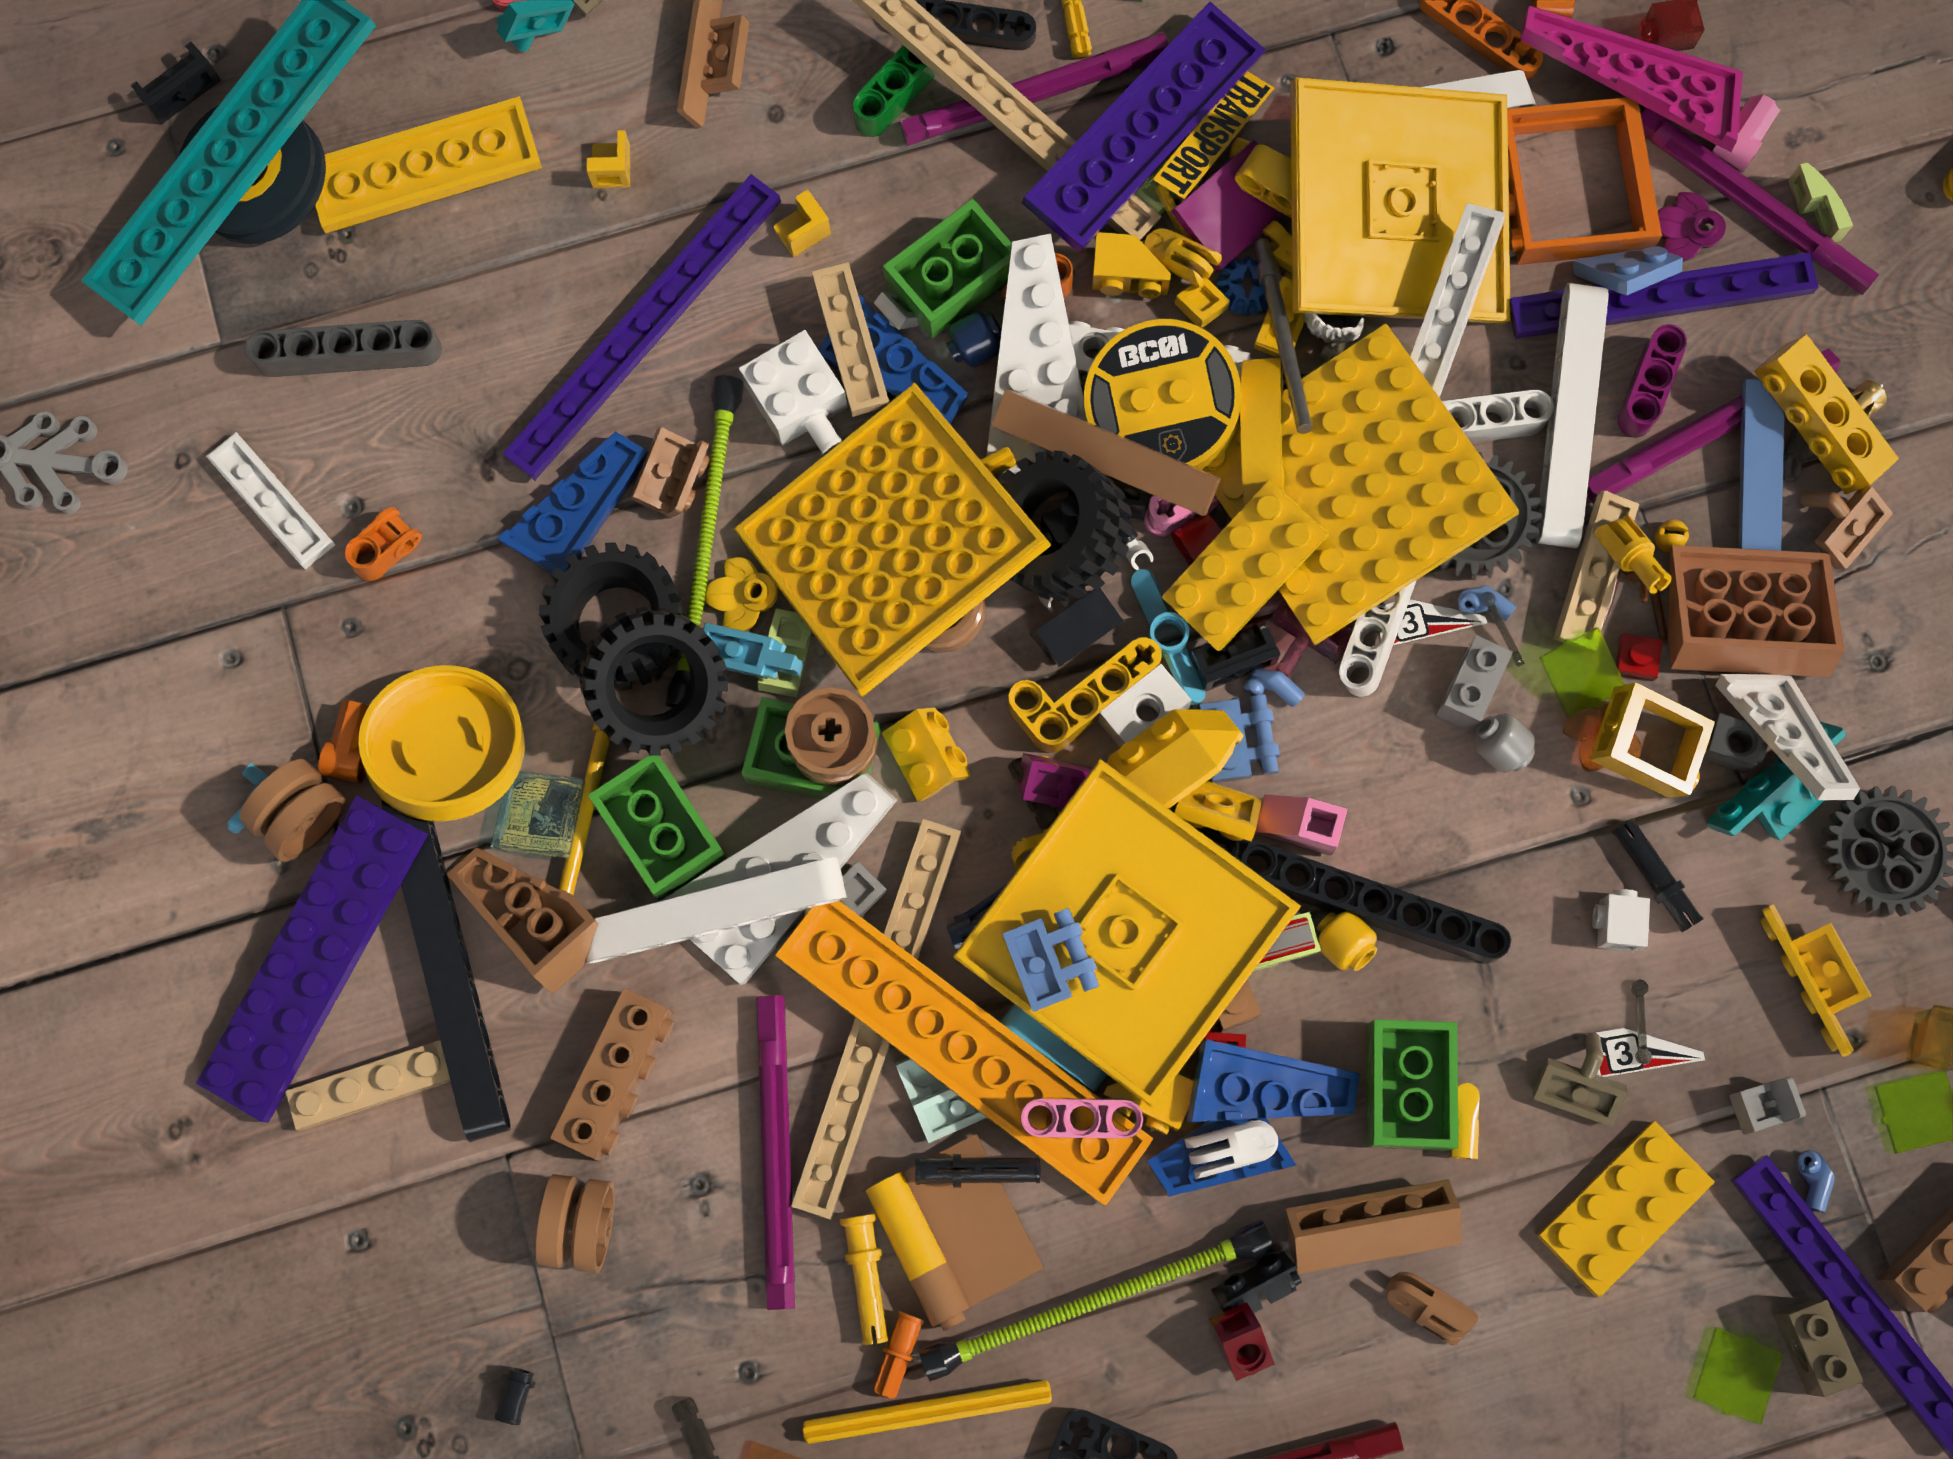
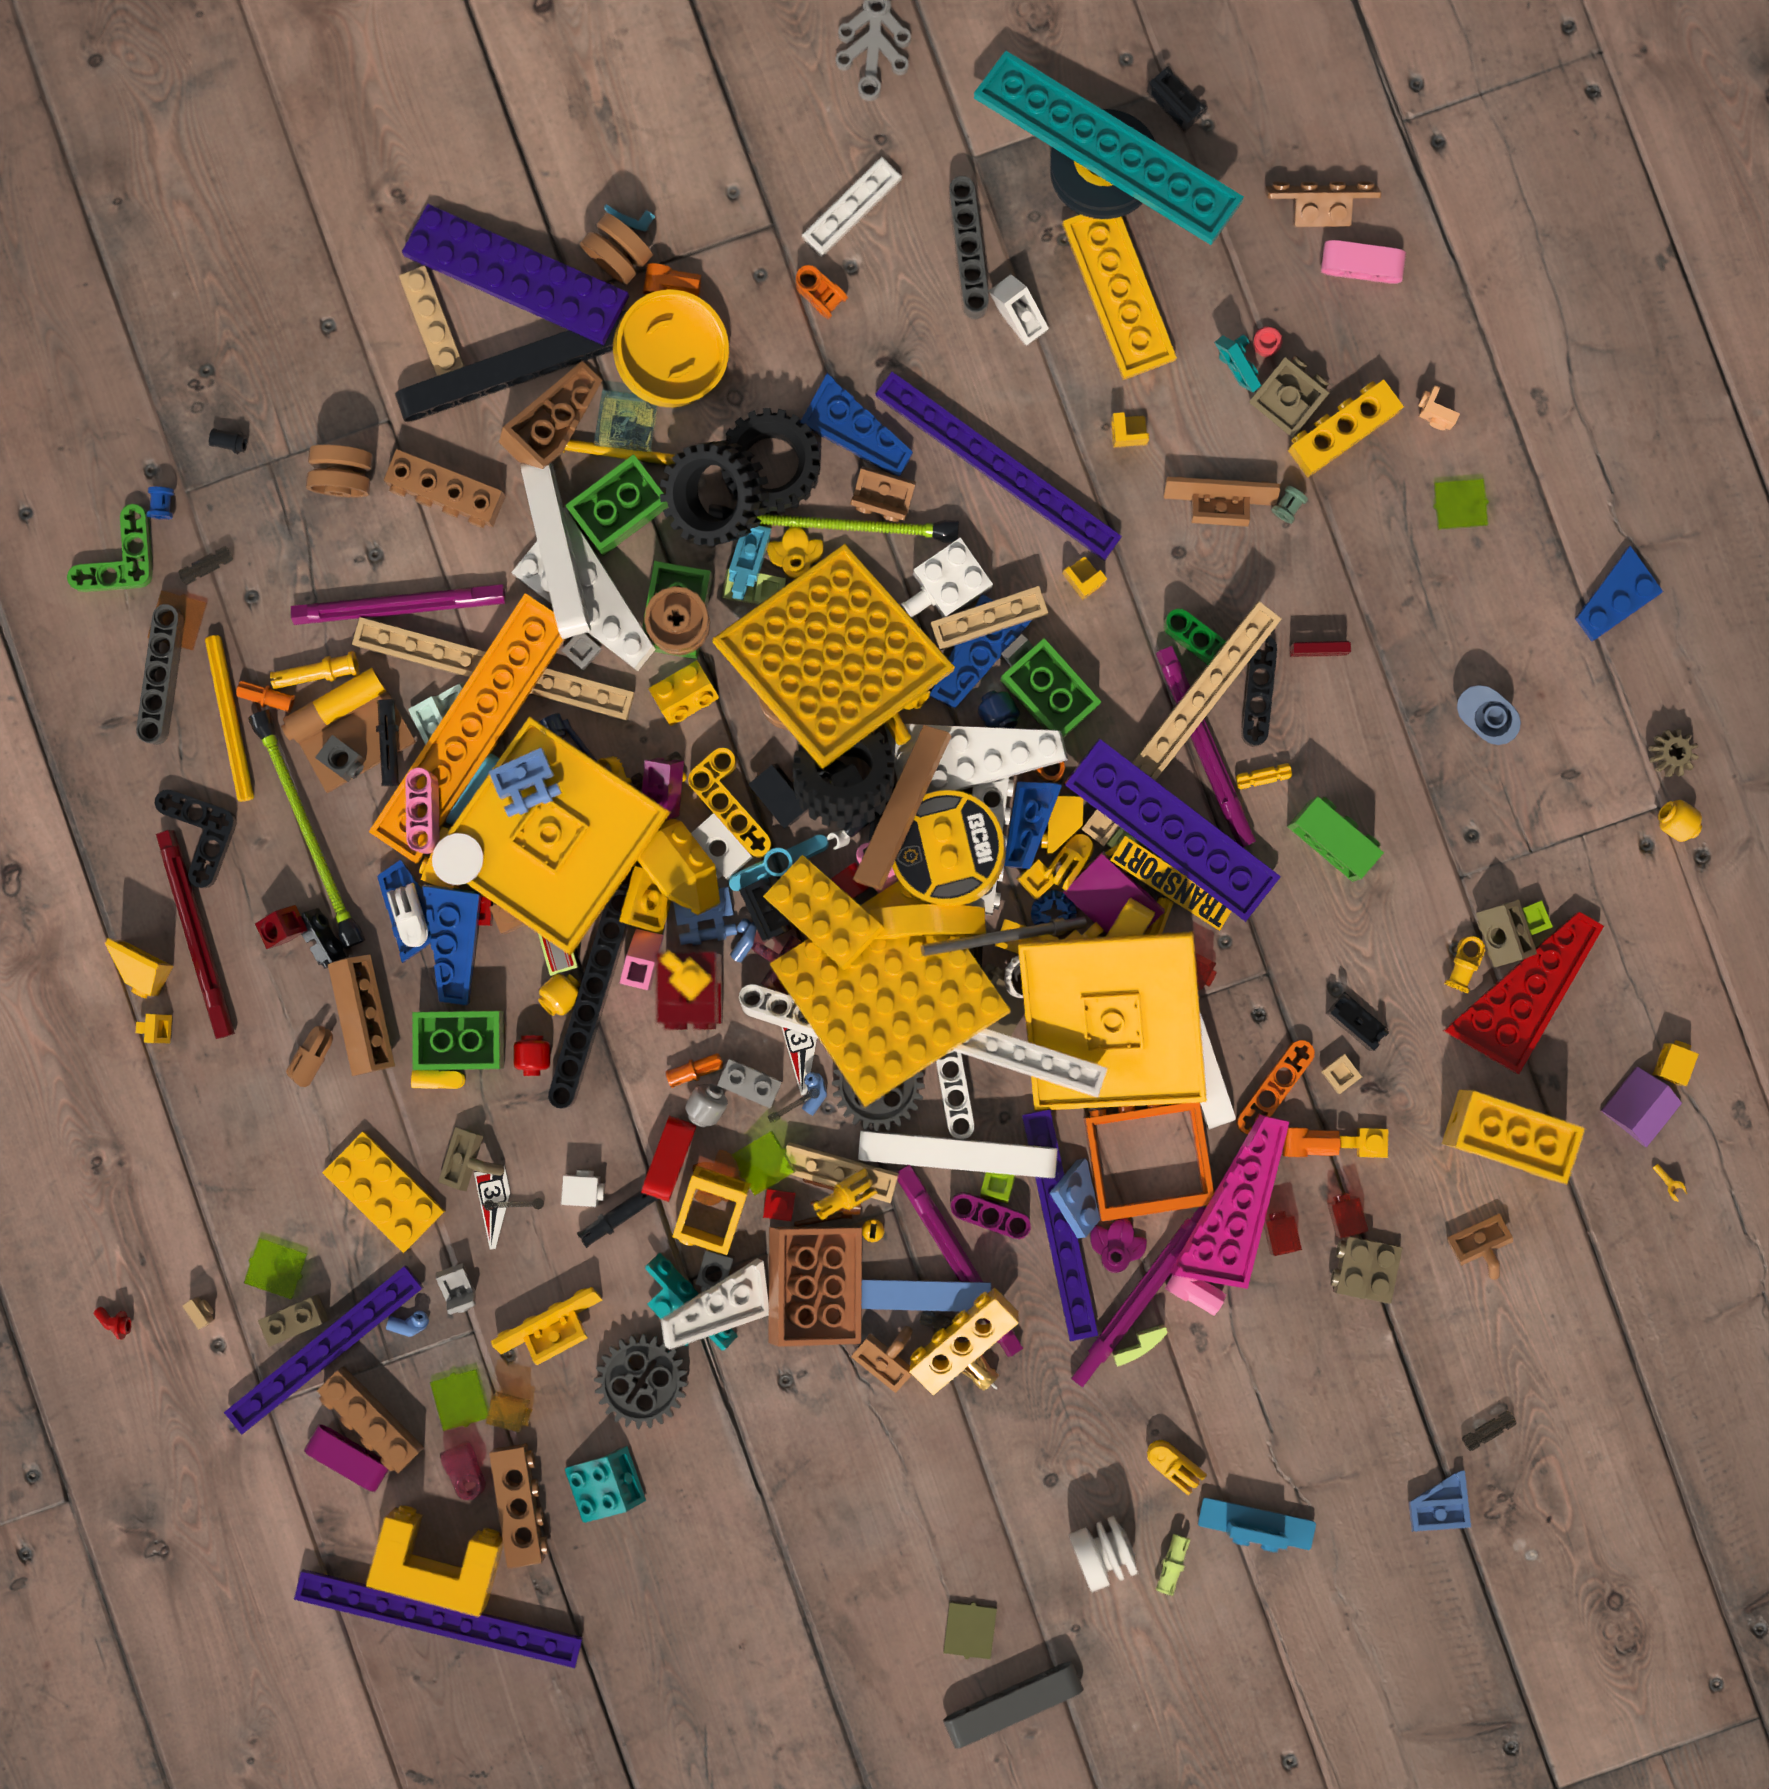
camera: 85 degrees right, 10 degrees up
(433, 288) = (1019, 309): none -> white slope
(982, 1248) = (332, 751): none -> dark grey brick
(1117, 299) = (1029, 820): none -> blue wing
(1156, 1065) = (457, 859): none -> white sticker
(1347, 719) = (688, 977): none -> yellow plate
(1353, 741) = (673, 1005): none -> dark red piece
(1432, 983) = (531, 1055): none -> red head
(1453, 760) = (694, 1070): none -> orange axle
(1579, 797) = (669, 1158): none -> red beam
(1616, 370) = (997, 1187): none -> lime plate

